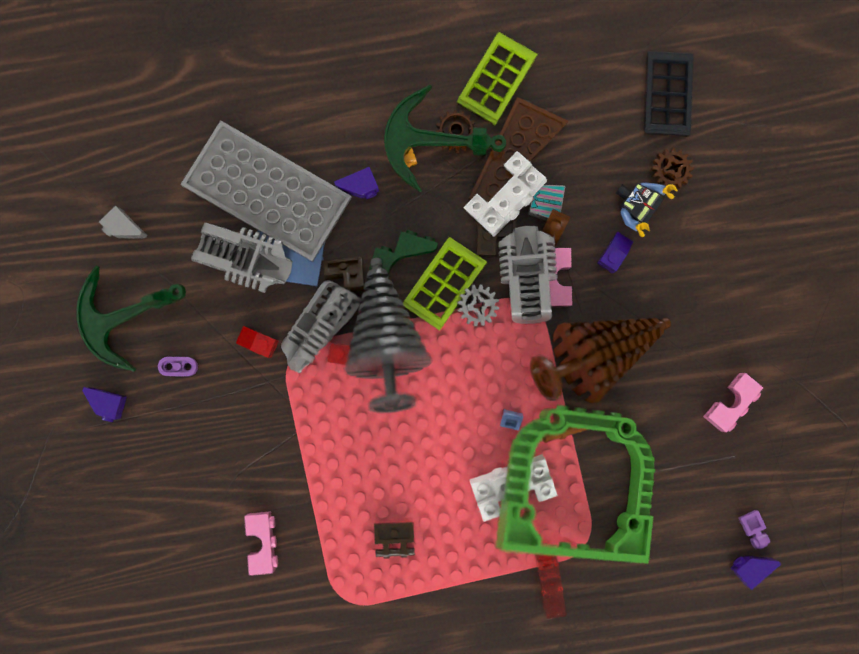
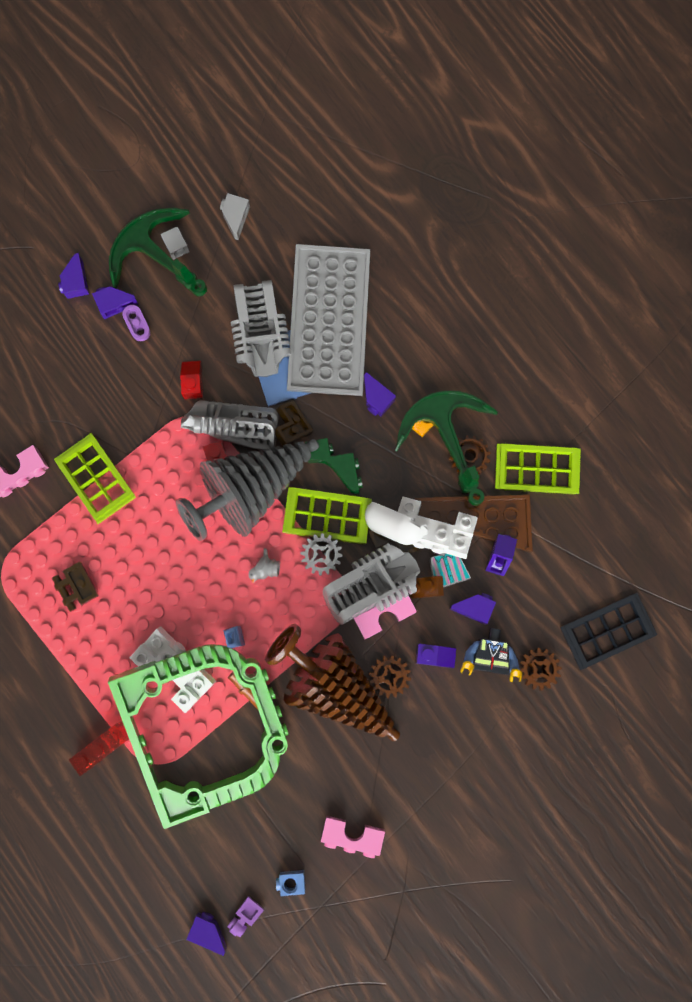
camera: 65 degrees right, 5 degrees down
(120, 294) = (174, 243): none -> light grey panel
(145, 378) = (112, 301): none -> dark purple slope
(338, 469) = (114, 505): none -> lime piece
(464, 362) = (264, 568): none -> light grey animal
(485, 228) = (393, 524): none -> white brick
(558, 148) = (501, 554): none -> dark purple slope
(592, 195) = (476, 607): none -> dark purple slope
(615, 292) = (398, 674): none -> reddish brown gear
(754, 471) = (299, 878): none -> medium blue brick

